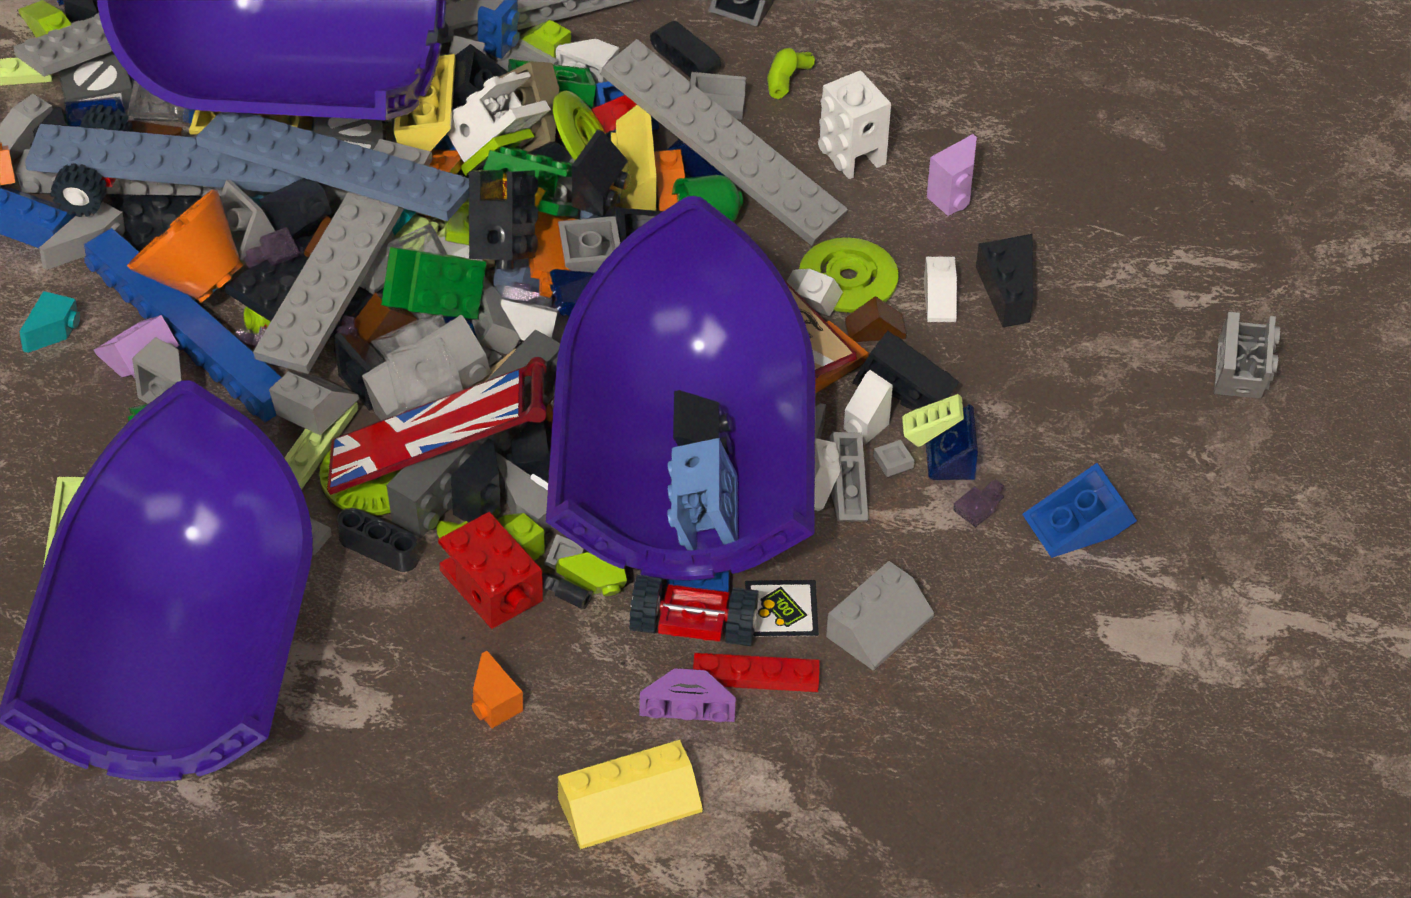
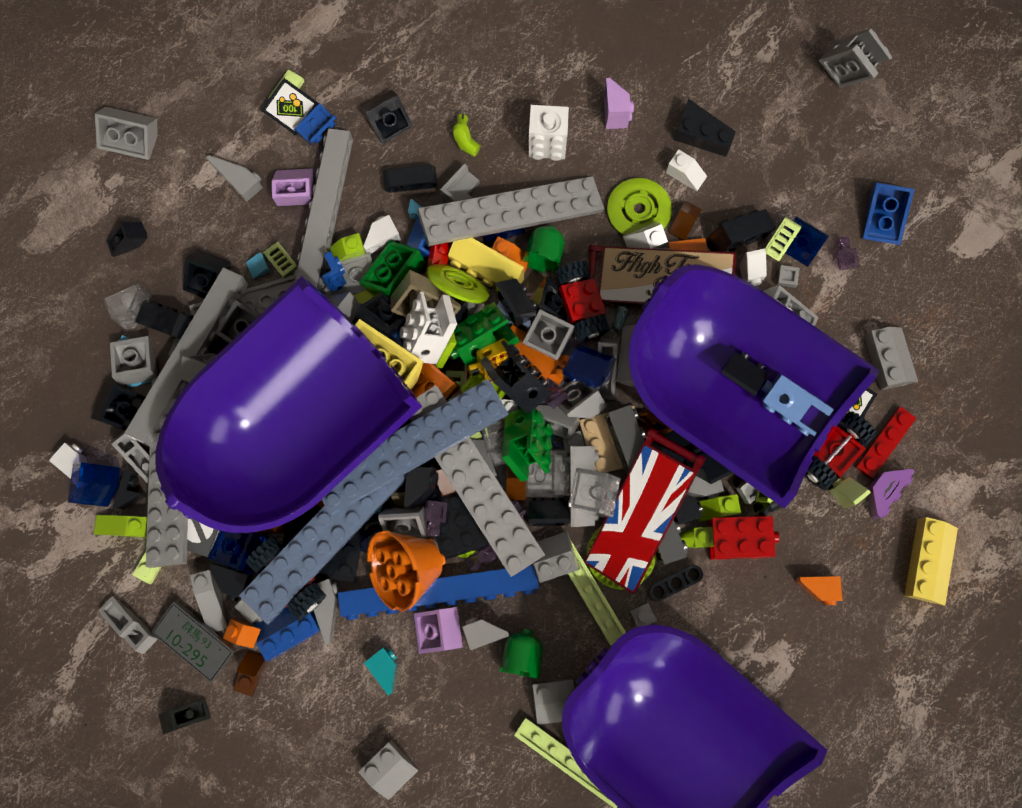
camera: 50 degrees left, 30 degrees up
(645, 655) = (848, 492): none -> yellowish green slope

